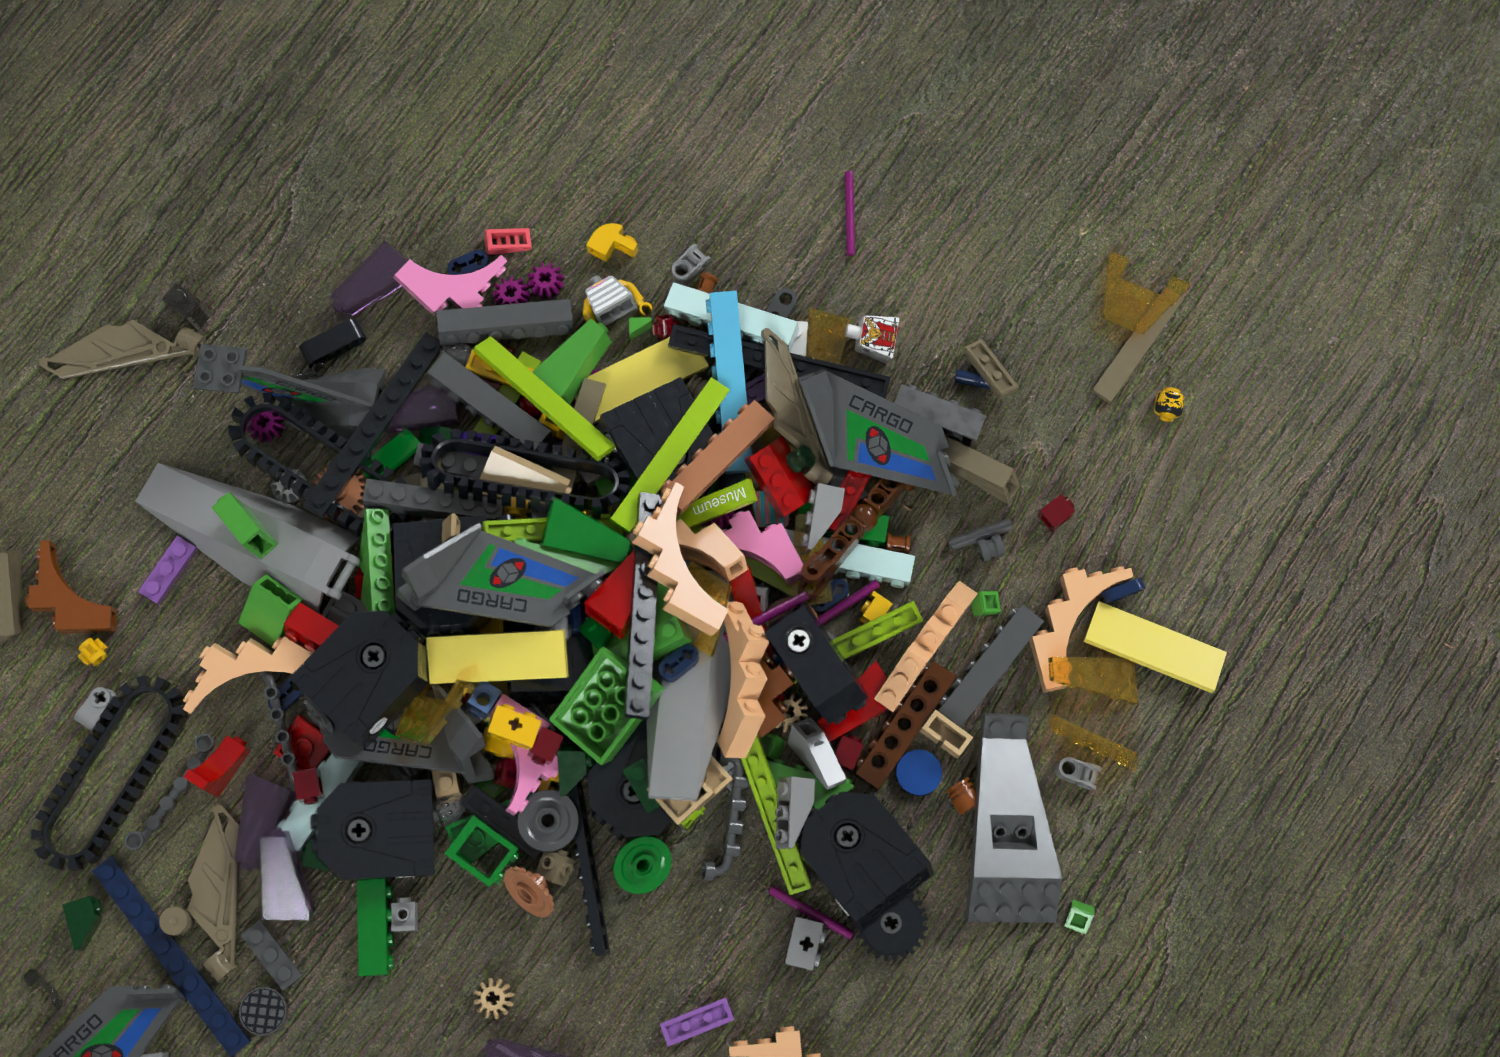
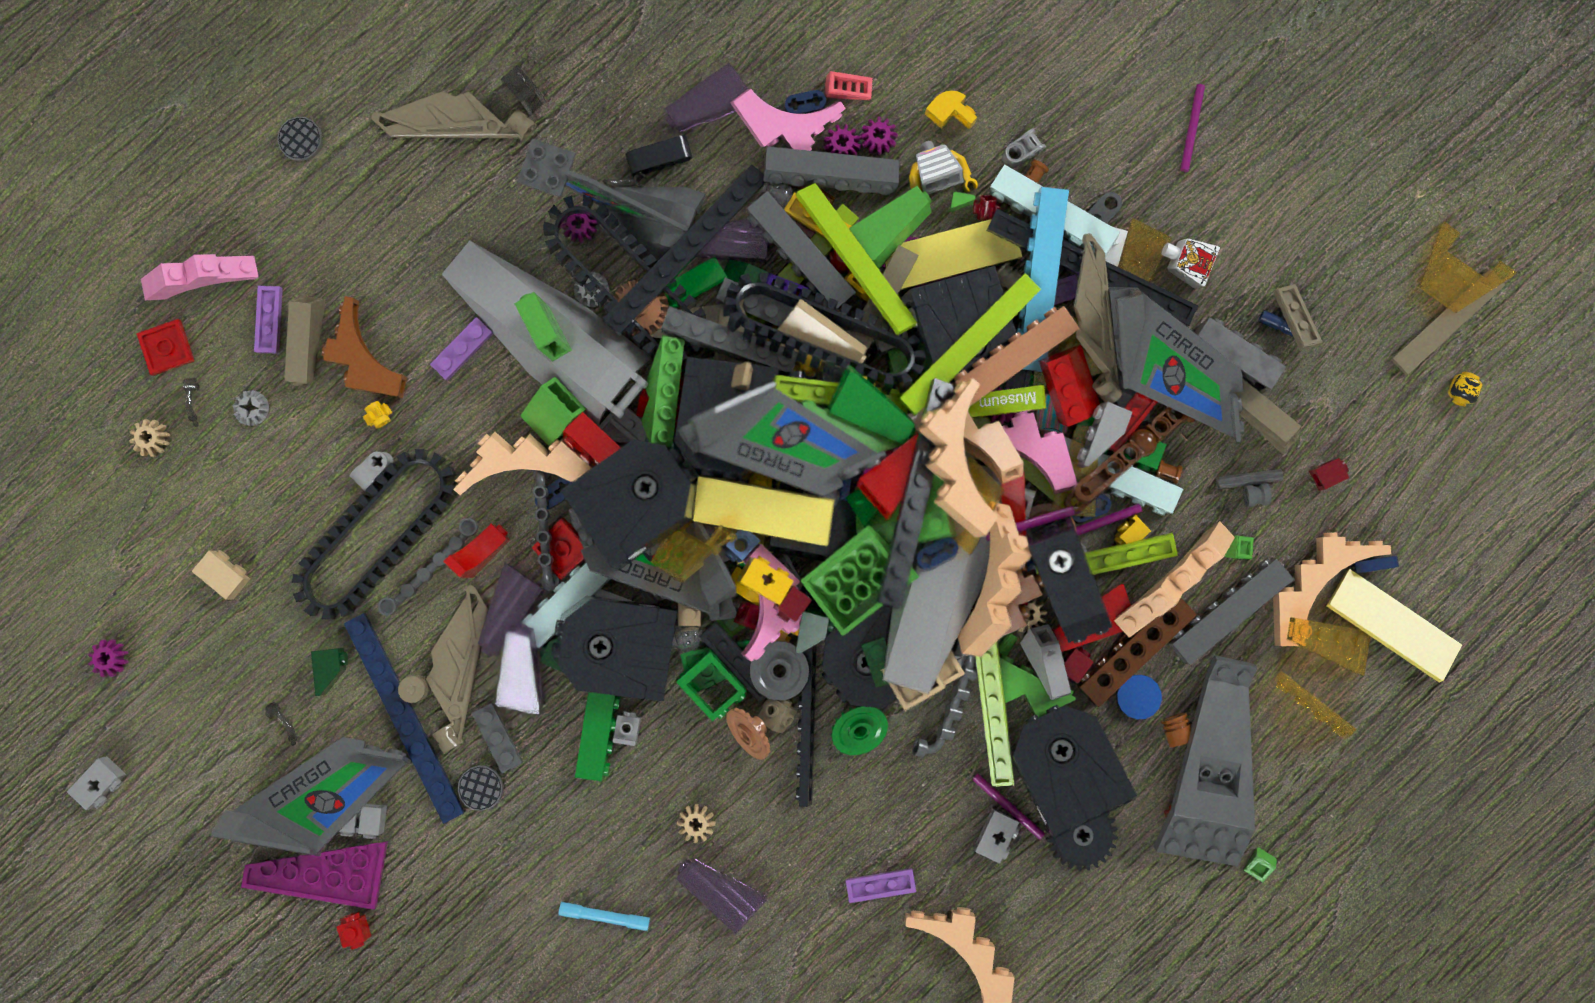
camera: 20 degrees right, 10 degrees up
(308, 786) = (559, 590): dark red brick -> none
(793, 808) = (1015, 710): light grey slope -> none
(801, 458) = (1094, 372): clear green wheel -> none
(942, 729) = (1177, 669): tan piece -> none
(1083, 773) = (1294, 731): light grey piece -> none

